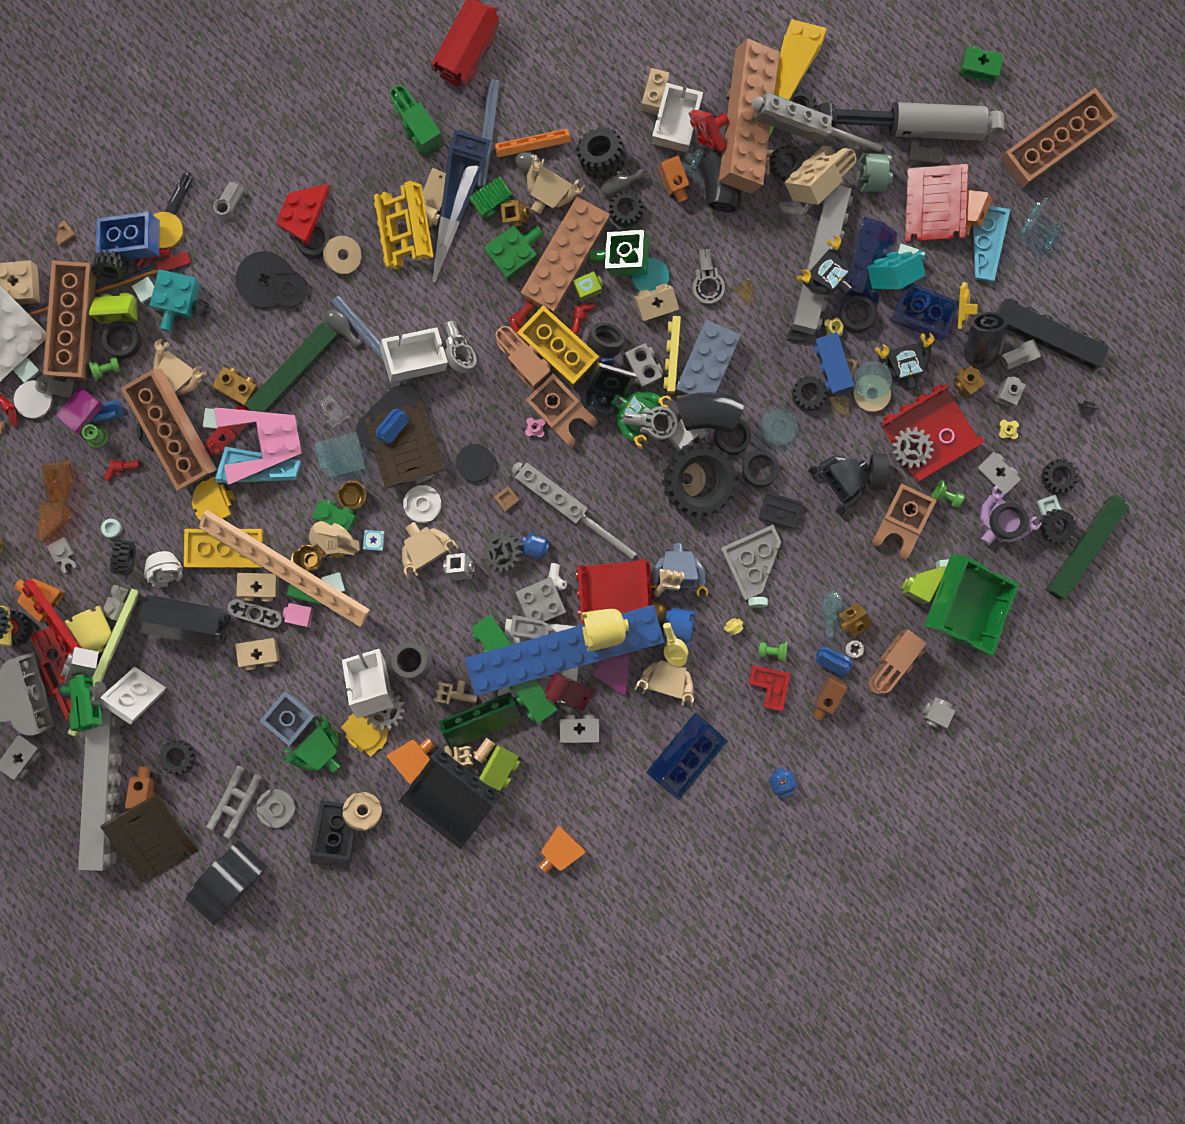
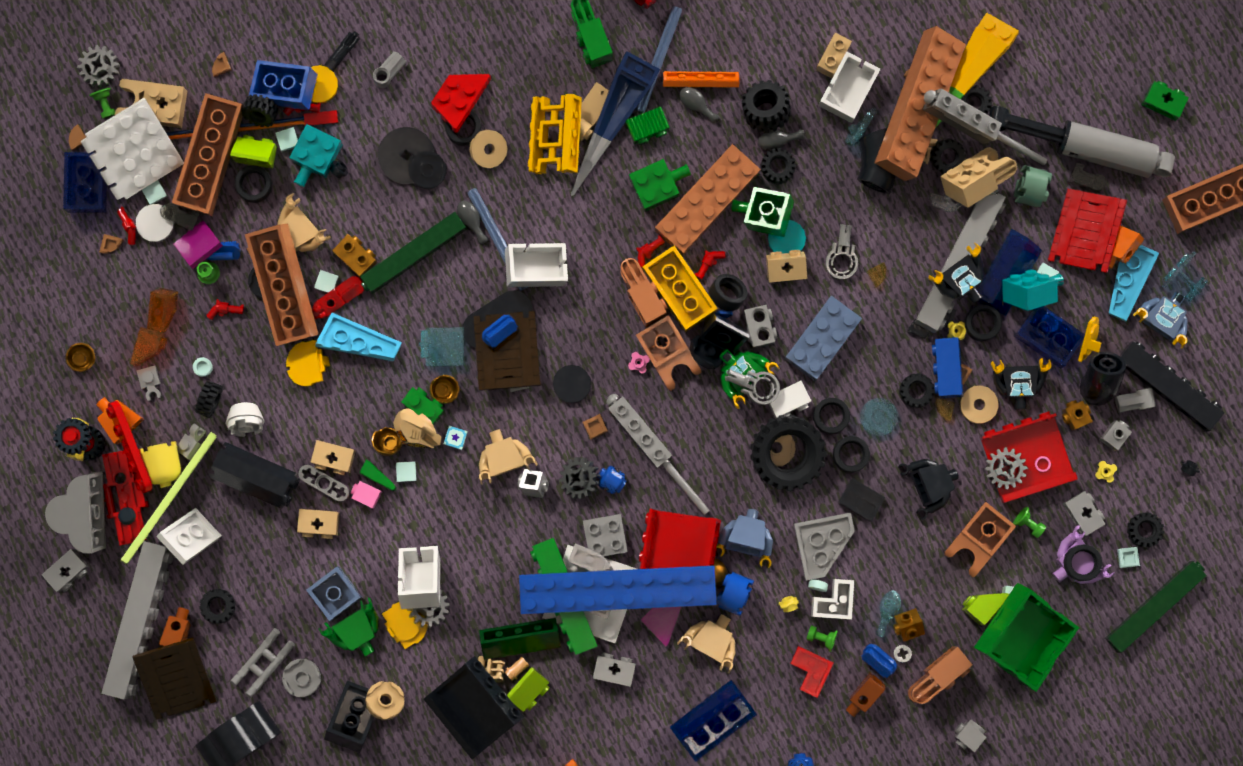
camera: 15 degrees right, 0 degrees up
(80, 662) = (146, 498): light grey brick -> none
(84, 703) = (144, 534): green piece -> none
(98, 370) = (224, 209): bright green piece -> none
(206, 551) = (307, 412): yellow plate -> none
(276, 436) = (383, 319): bright pink wing -> none
(283, 568) = (362, 446): light nougat plate -> none
(336, 415) = (447, 305): clear plate -> none
(398, 658) = (453, 561): dark grey piece -> none
(411, 758) = (445, 660): orange torso -> none
(422, 509) = (505, 412): white tile -> none
(458, 344) = (581, 263): light grey pin -> none
(458, 694) = (496, 606): tan arm -> none
(515, 213) = (667, 146): pearl gold brick -> none
(549, 188) = (707, 129): tan torso -> none
(554, 574) = (627, 522): white arm -> none
(569, 691) = (612, 630): dark red door -> none
(588, 286) = (723, 234): lime brick -> none
(603, 629) = (660, 578): light yellow cylinder -> none
(669, 580) = (735, 544): tan arm -> none
(672, 347) = (791, 314): light yellow plate -> none
(673, 170) = (830, 139): orange torso -> none
(675, 649) = (725, 614): light yellow piece -> none
(708, 128) = (877, 108): red plate -> none
(710, 411) = (813, 388): black brick -> none
(782, 616) = (839, 605): none -> white brick
(872, 379) = (982, 392): clear light blue tile -> none
(878, 471) = (966, 484): black tyre -> none
(1031, 269) = (1166, 317): none -> sand blue torso
(1067, 532) = (1136, 589): black tyre -> none

